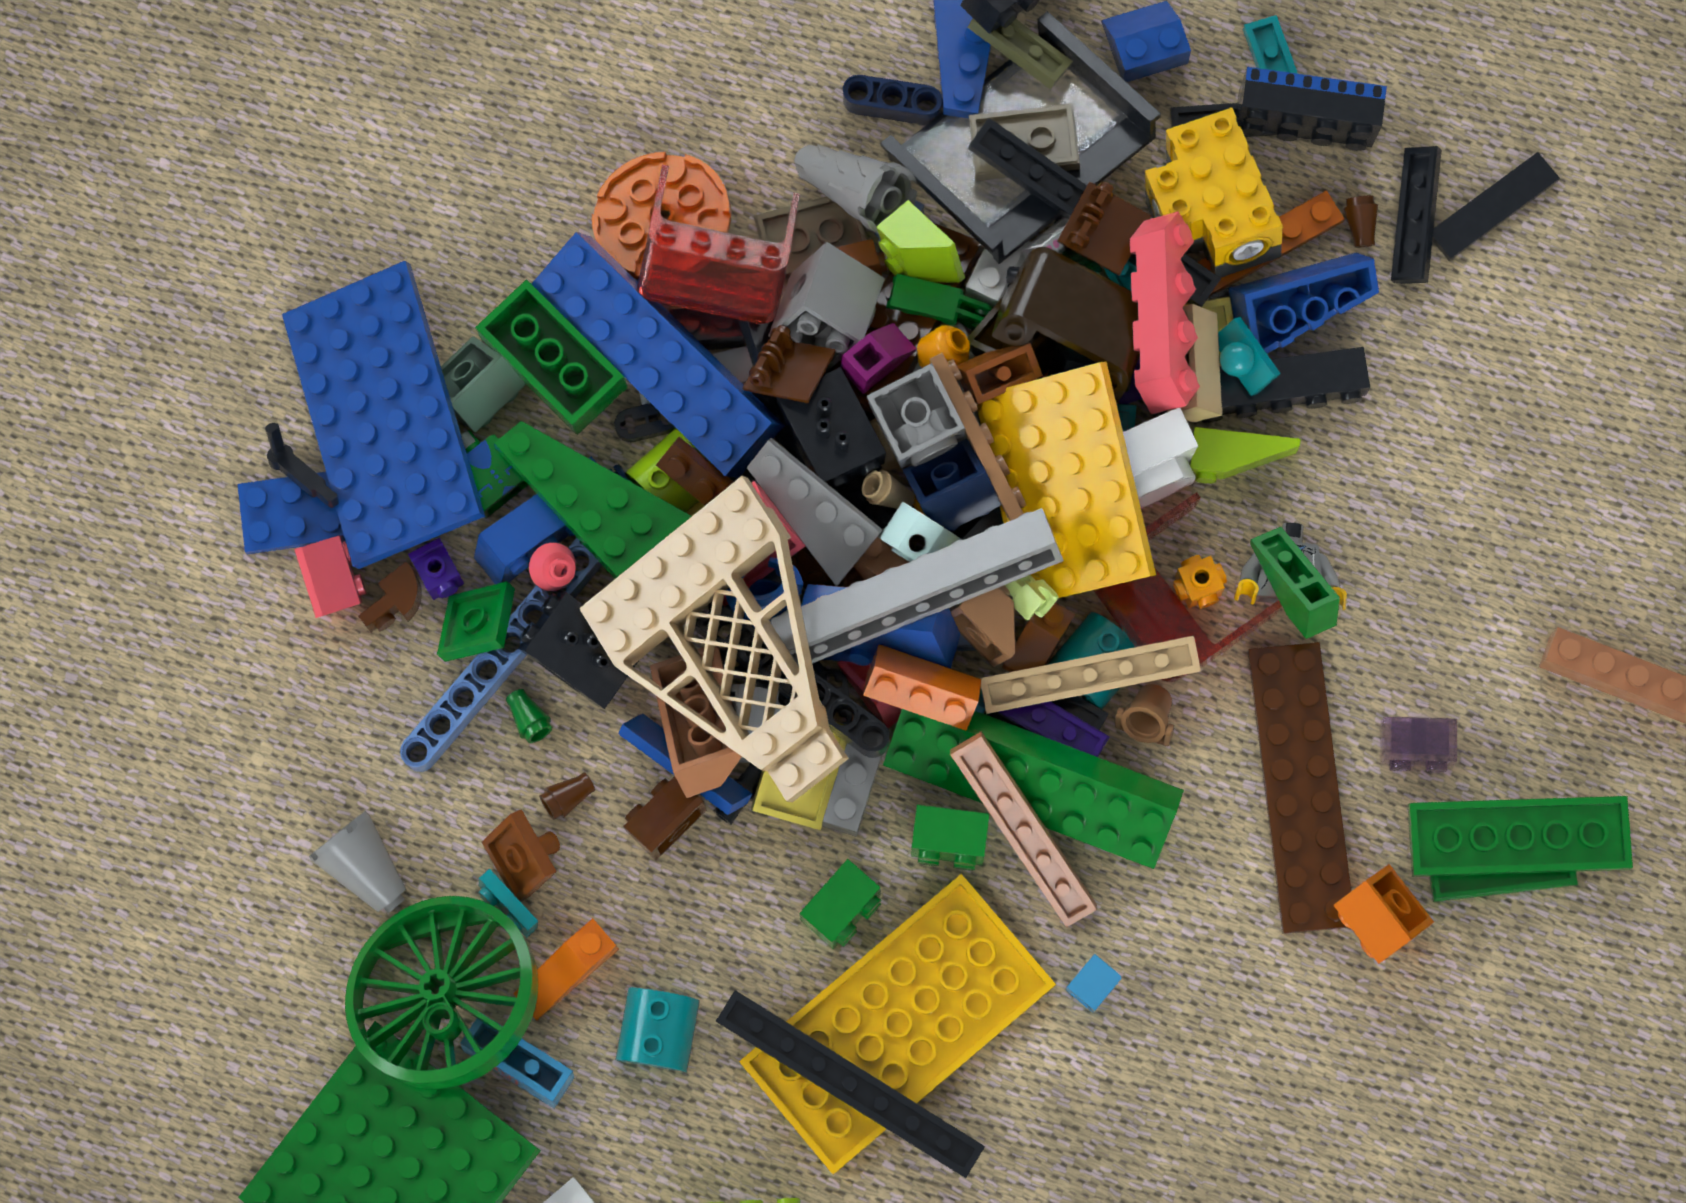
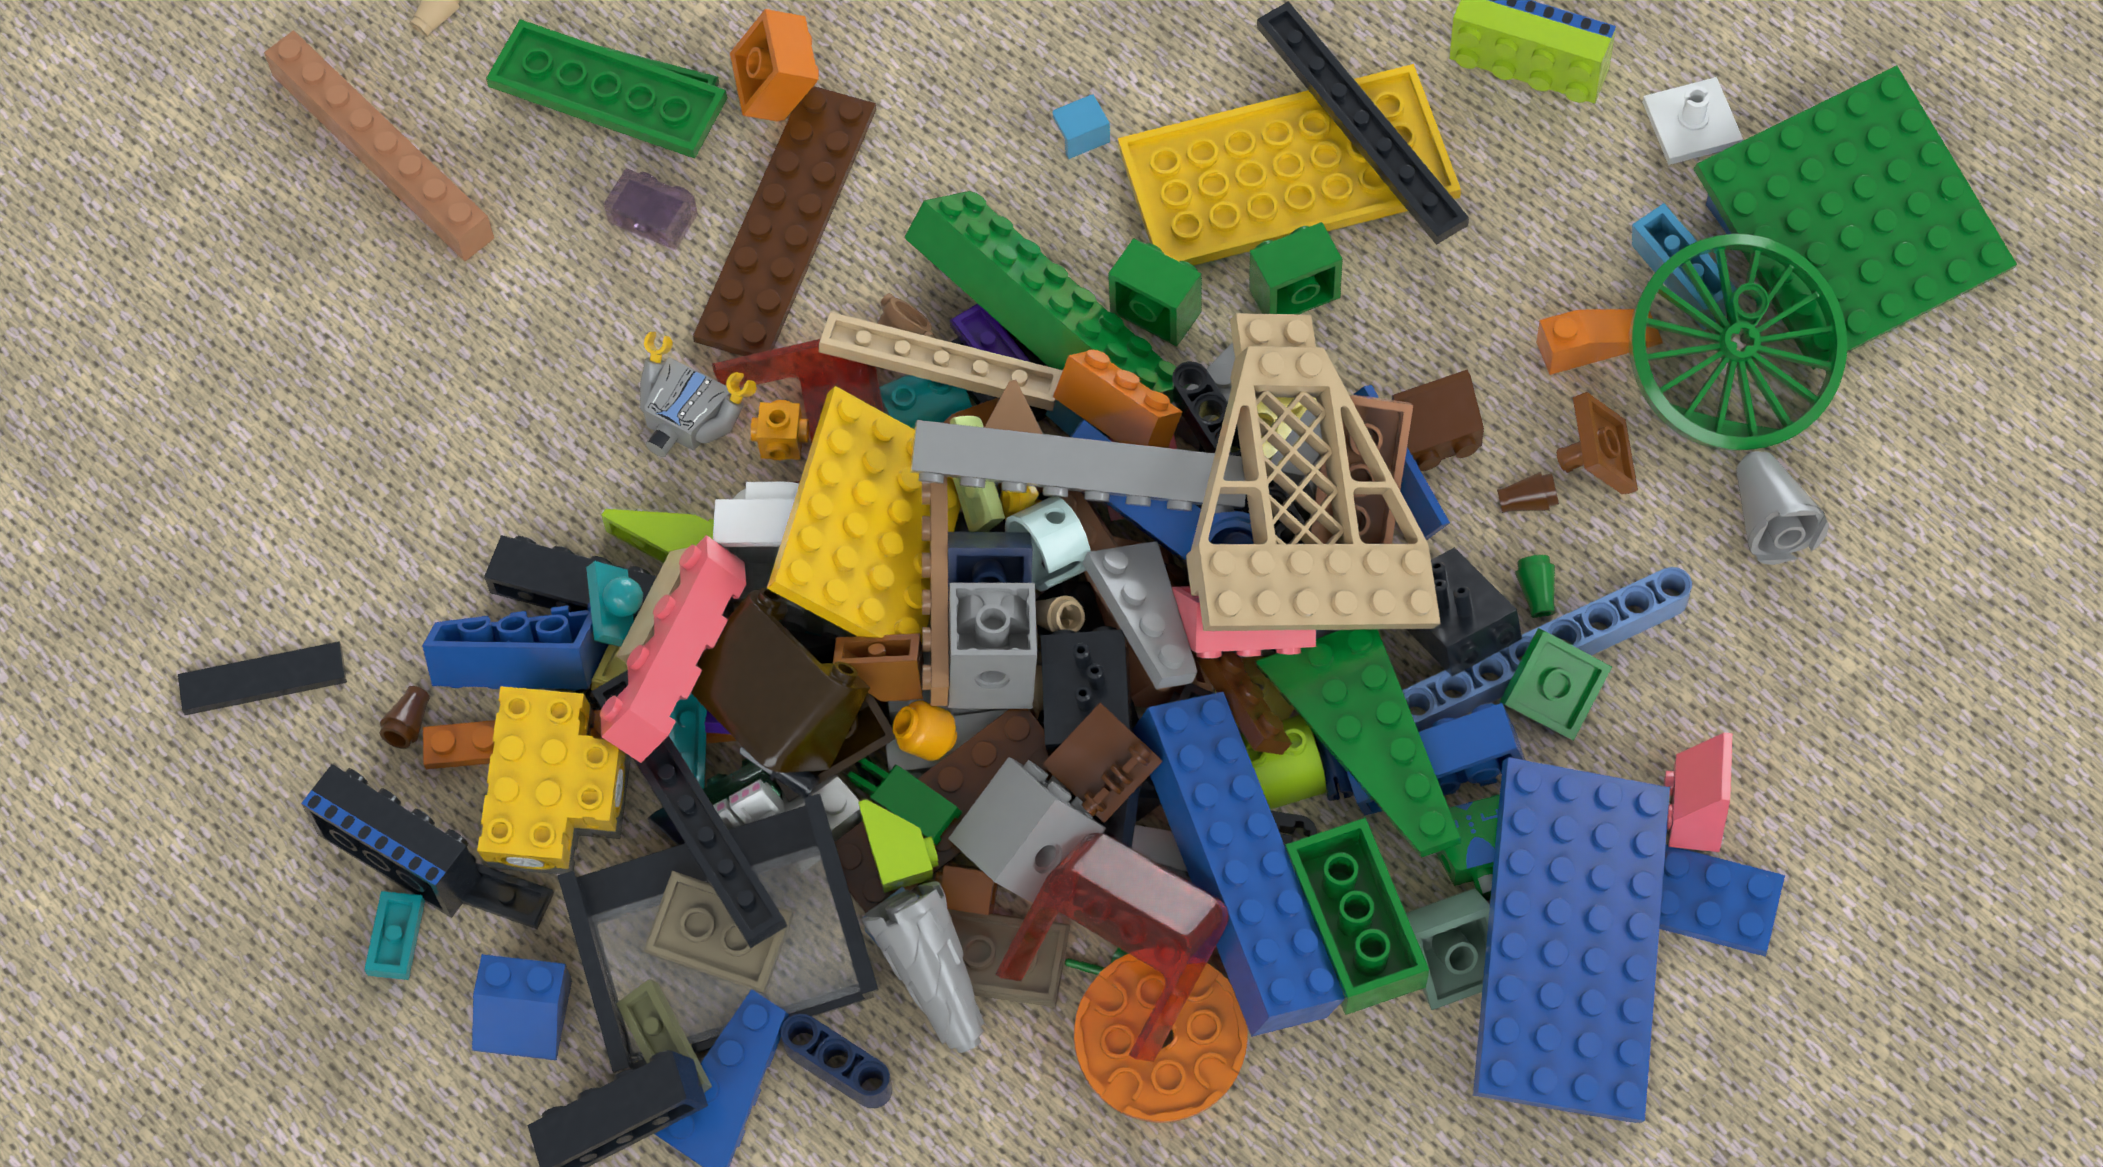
camera: 155 degrees left, 15 degrees down
(282, 458) = (1704, 960): black piece -> none
(402, 595) = (1629, 755): reddish brown brick -> none
(429, 557) = (1576, 744): dark purple brick -> none
(496, 893) = (1630, 399): teal plate -> none
(552, 566) = (1448, 689): coral cone -> none
(657, 1029) = (1532, 249): teal brick -> none
(876, 356) = (996, 738): magenta slope -> none
(1023, 829) = (1081, 260): nougat plate -> none
(1102, 227) = (687, 775): reddish brown hinge -> none
(1297, 583) = (687, 371): green slope -> none
(1416, 215) = (346, 700): black tile -> none

